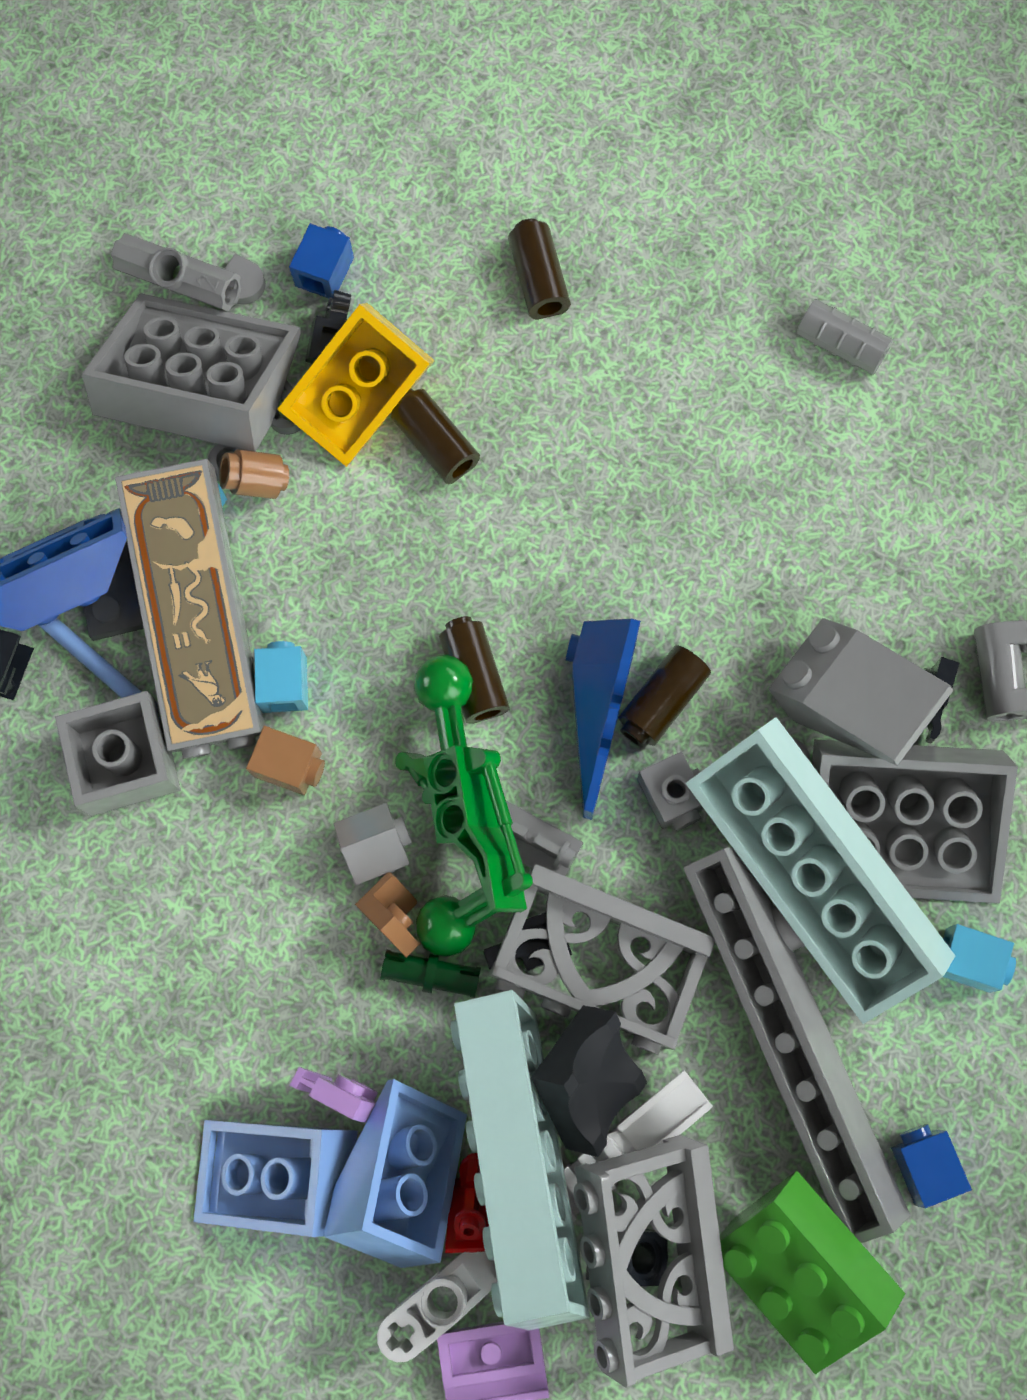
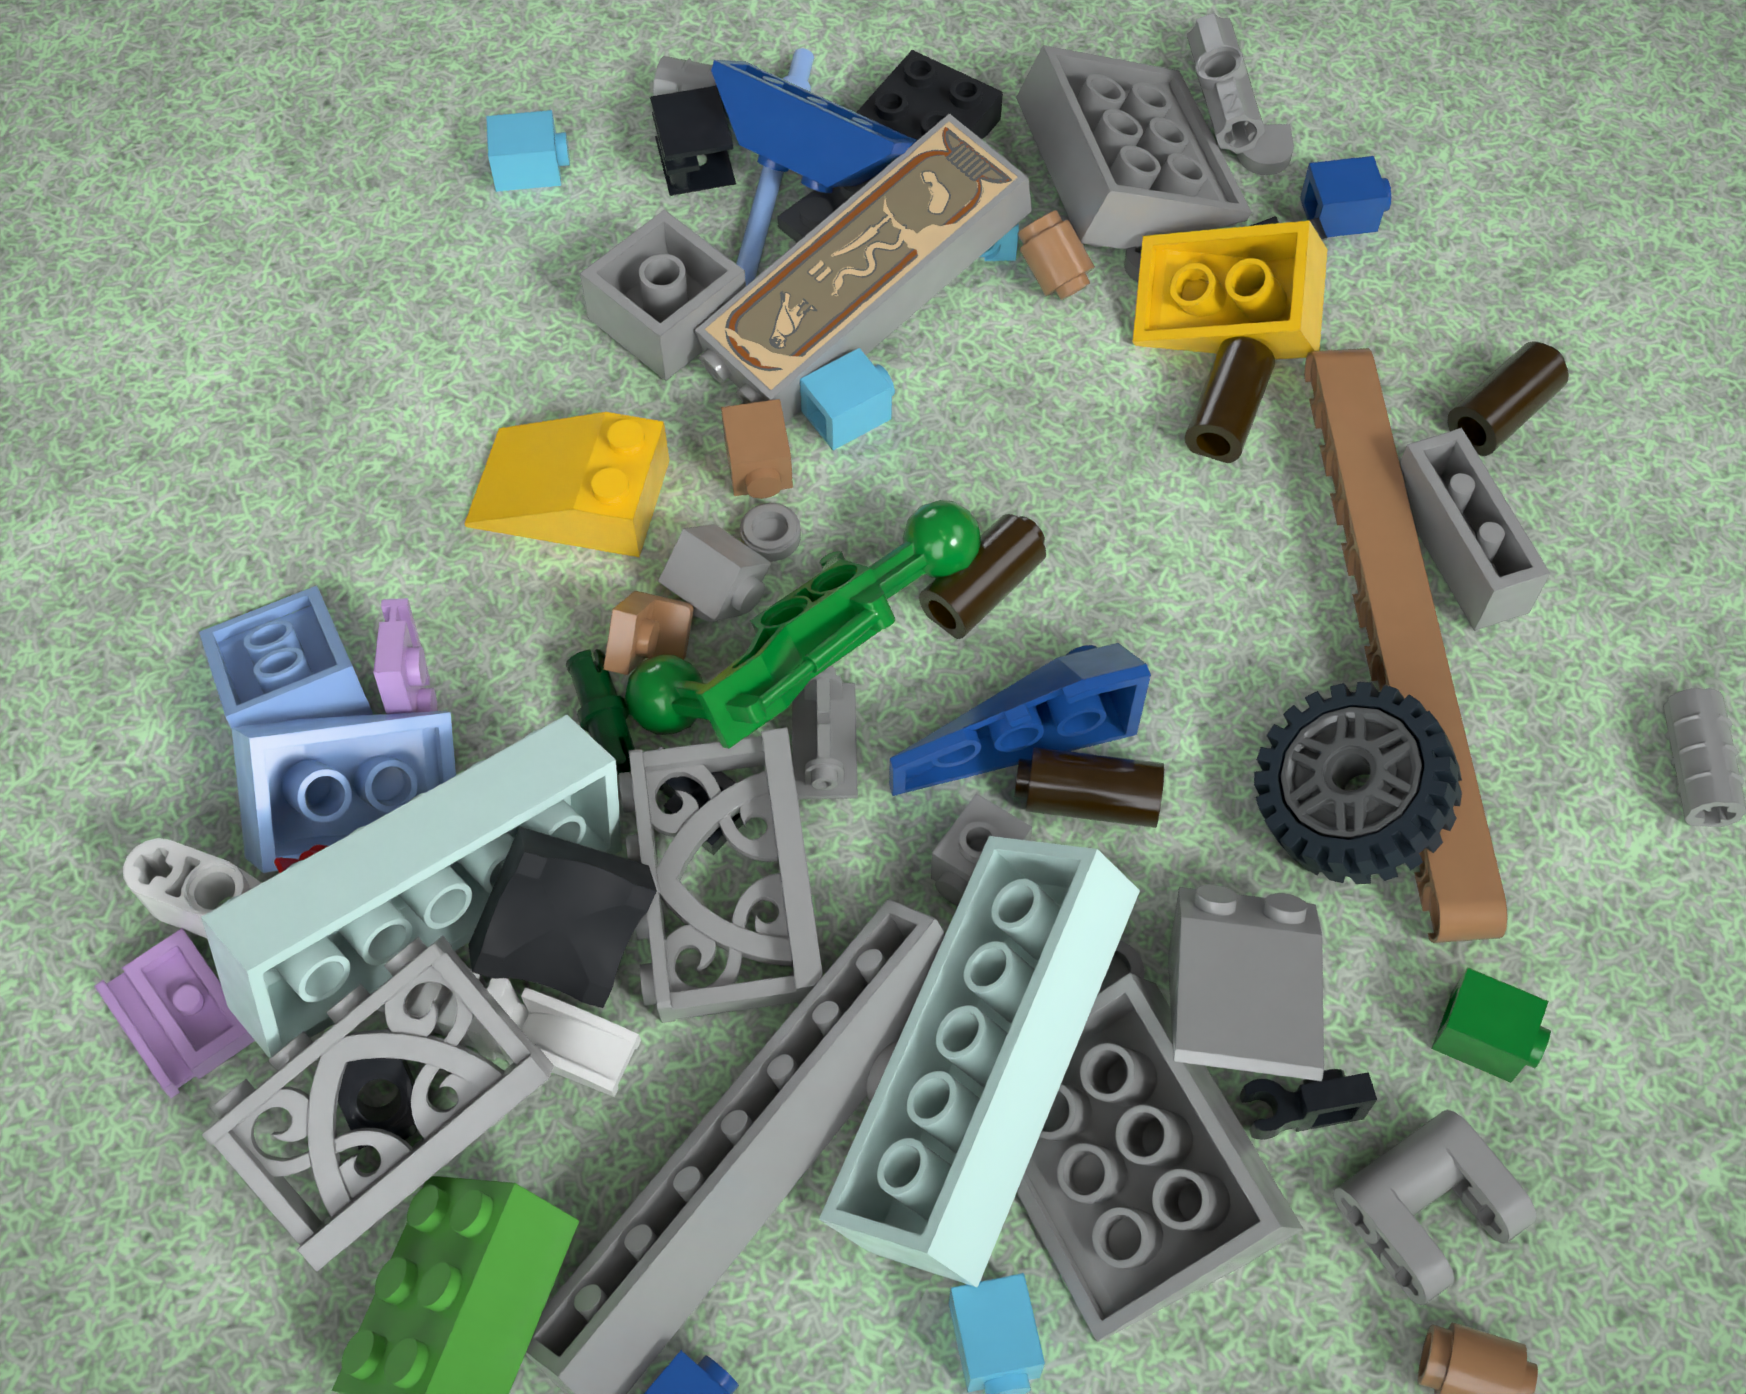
camera: 55 degrees right, 15 degrees down
(66, 480) = (925, 92): none -> black brick
(230, 903) = (574, 481): none -> yellow slope
(351, 787) = (771, 531): none -> light grey tile
(623, 360) = (1471, 530): none -> light grey brick
(663, 444) = (1396, 606): none -> medium nougat beam
(751, 579) = (1384, 820): none -> wheel
(941, 568) = (1493, 1026): none -> green brick

